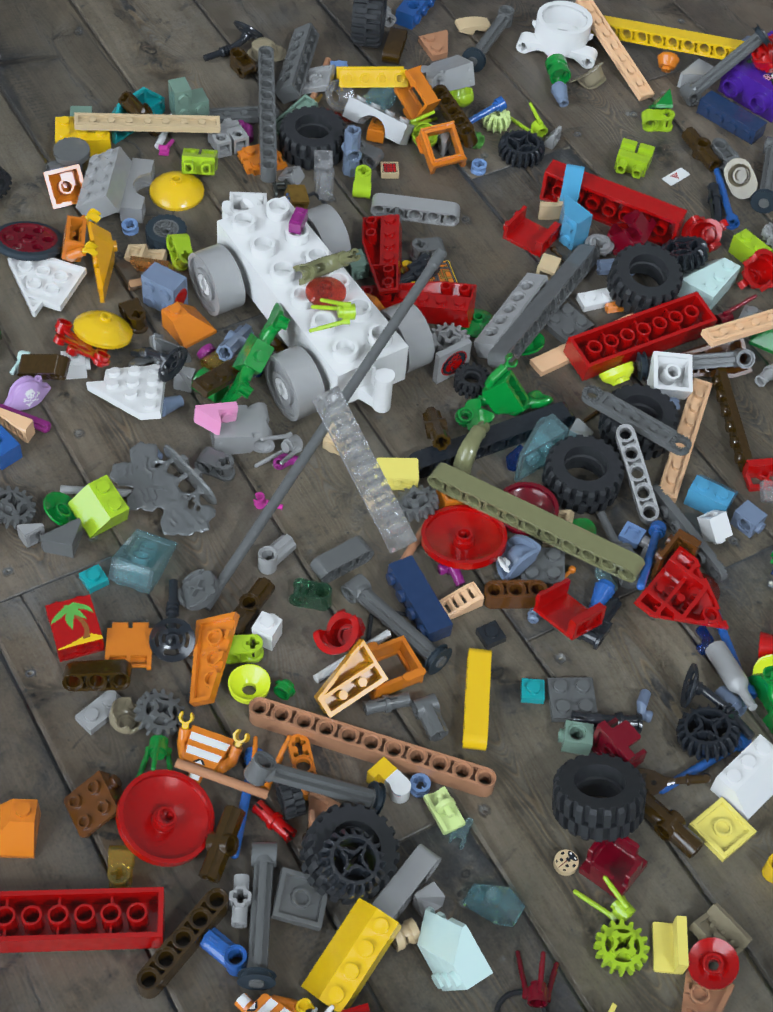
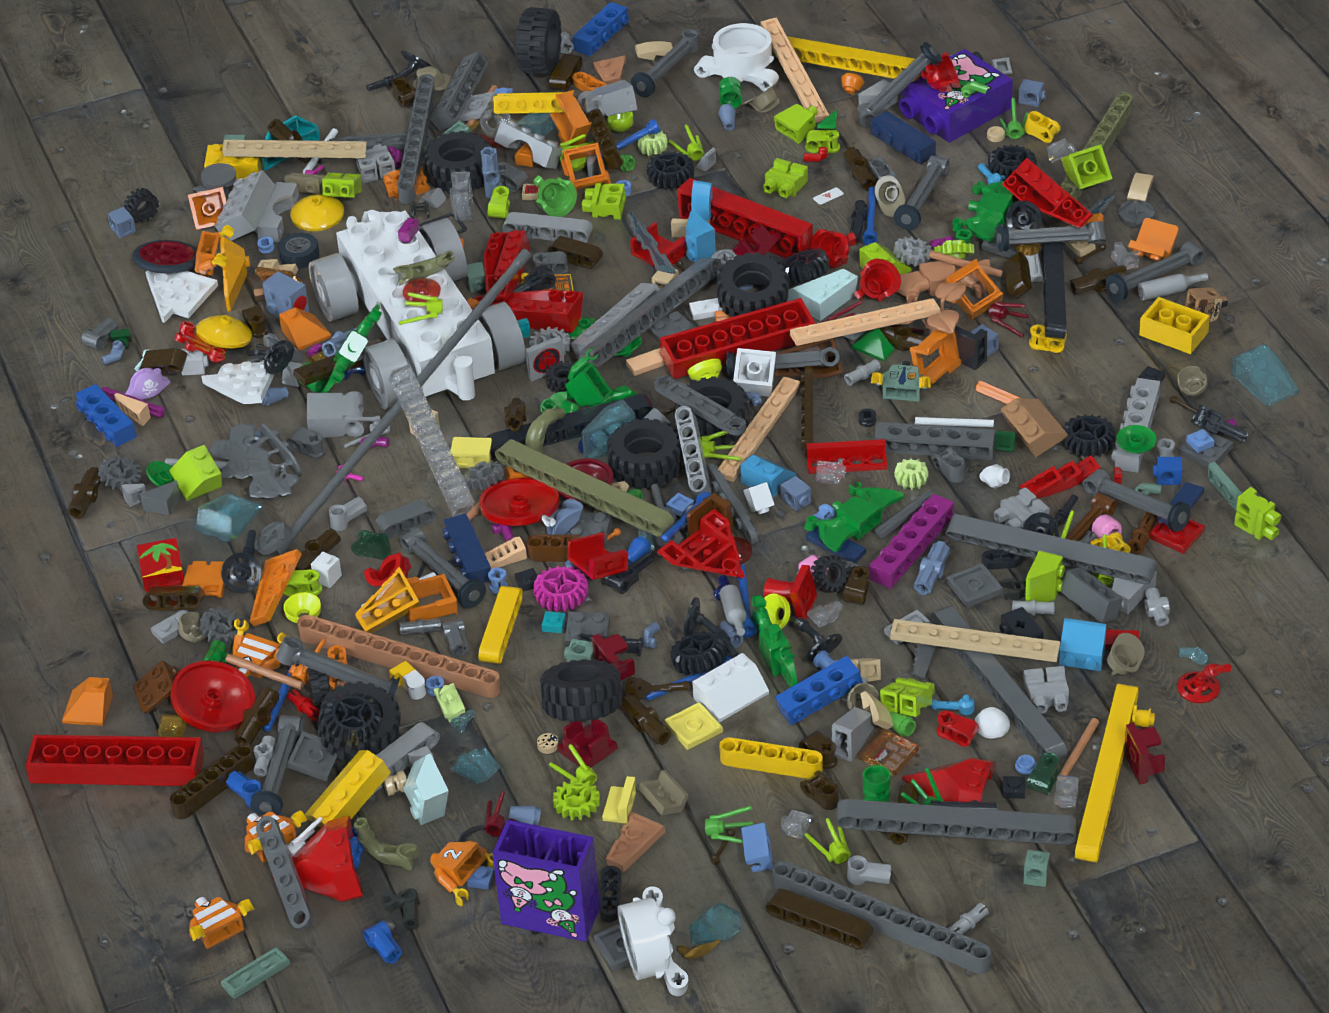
camera: 15 degrees right, 10 degrees down
(94, 578) = (184, 530): teal plate -> none
(162, 158) = (306, 182): none -> dark tan bracket
(179, 250) = (302, 258): lime piece -> none
(186, 101) = (338, 128): sand green brick -> none
(212, 415) = (309, 397): bright pink slope -> none
(284, 689) = (333, 613): green plate -> none
(297, 196) = (429, 213): pearl gold brick -> none
(414, 55) = (583, 81): none -> orange beam
(417, 175) = (555, 196): none -> bright green helmet
(453, 237) = (577, 252): none -> dark brown beam
(462, 639) = (501, 573): none -> medium blue bush
(465, 180) = (605, 200): none -> lime hips
(525, 228) = (660, 260): none -> dark grey sword
(531, 637) = (561, 588): none -> dark pink gear
(570, 974) = (525, 814): none -> sand blue cone
(627, 100) = (796, 122): none -> lime torso
(656, 136) = (812, 157): none -> red arm
(656, 461) = (709, 447): none -> lime plant
(709, 951) = (648, 809): red dish -> none

